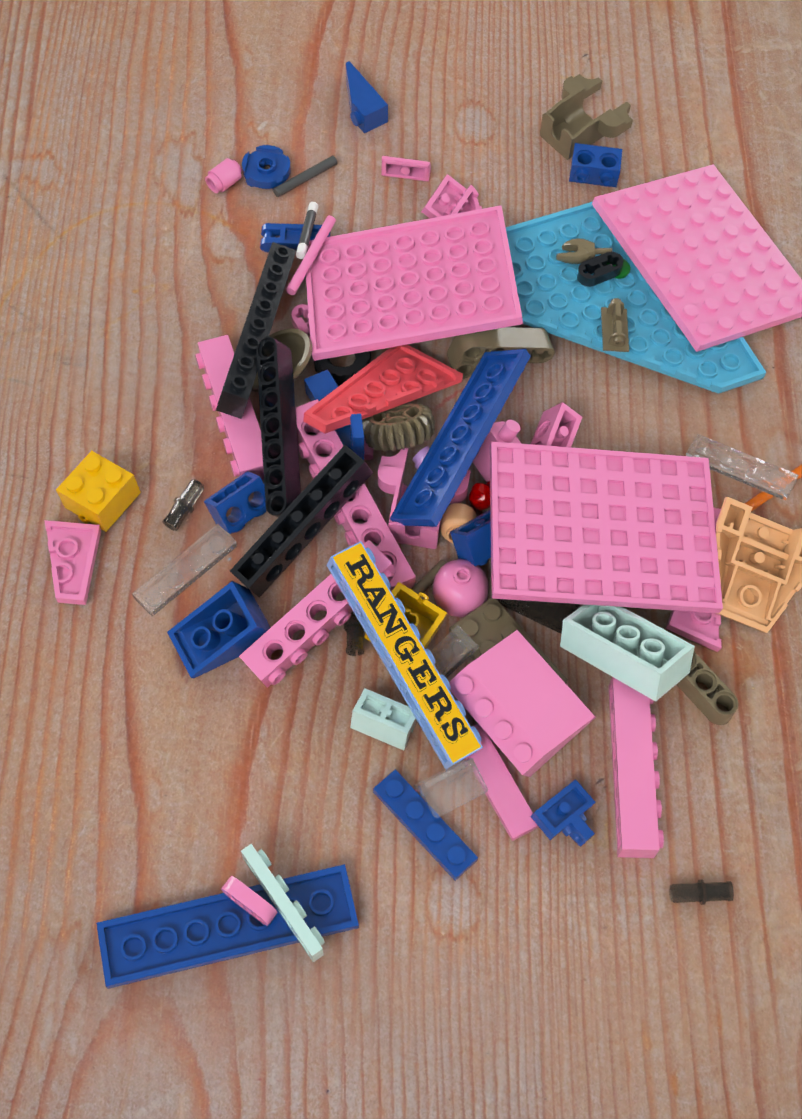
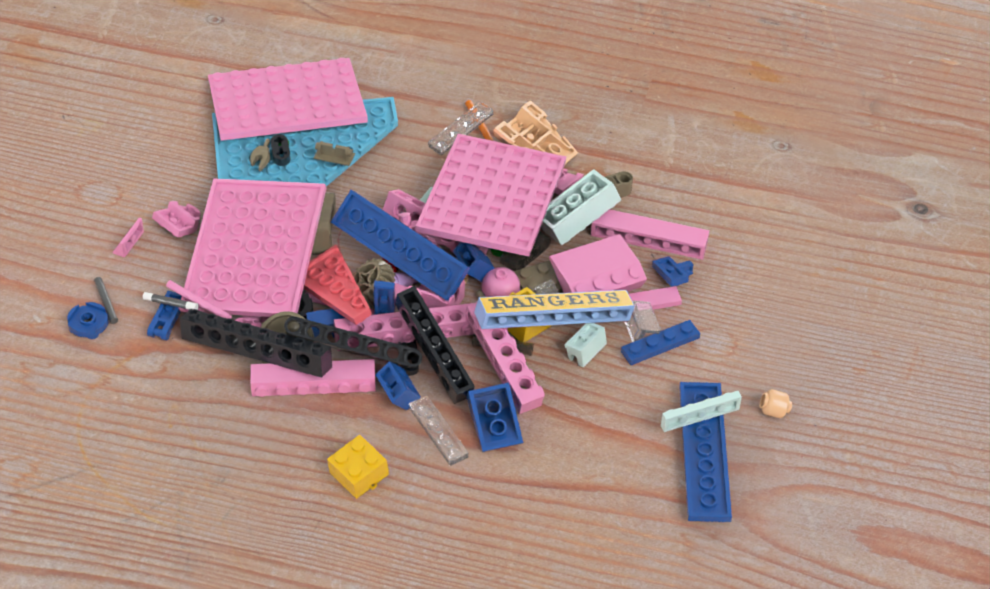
camera: 75 degrees left, 15 degrees down
(72, 559) = (407, 494): bright pink wing -> none
(183, 505) = (384, 422): clear smoke axle -> none
(223, 175) = (86, 346): bright pink brick -> none
(249, 900) = (695, 428): bright pink beam -> none
(340, 1018) = (775, 403): none -> light nougat head
(366, 105) = (47, 248): blue slope -> none
(569, 124) = (140, 139): dark tan piece -> none
(595, 165) = (179, 134): blue brick -> none
(701, 892) = (735, 224): clear smoke axle -> none

